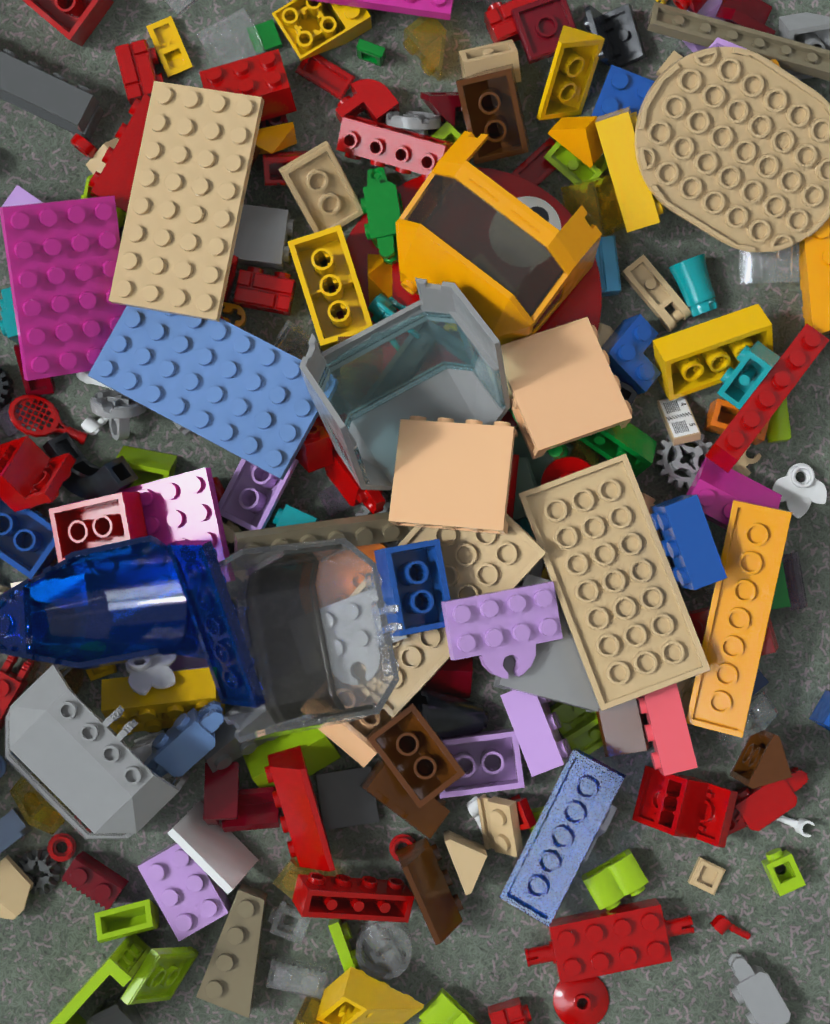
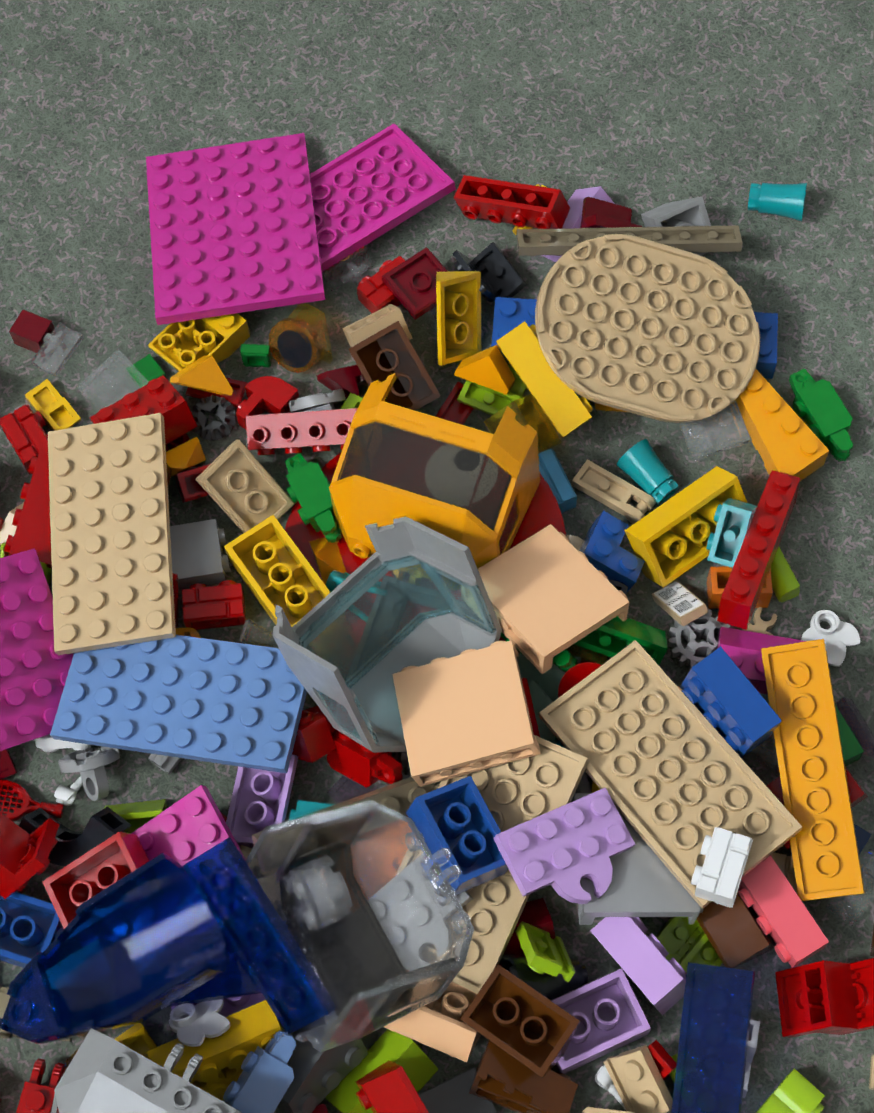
camera: 15 degrees left, 20 degrees down
(277, 600) = (318, 893): none -> clear brick
(313, 63) = (203, 375): none -> light orange slope
(327, 103) = (225, 412): none -> dark grey gear
(409, 54) = (295, 344): none -> tile
(456, 699) = (544, 953): none -> lime plate
(629, 686) = (722, 866): none -> white brick

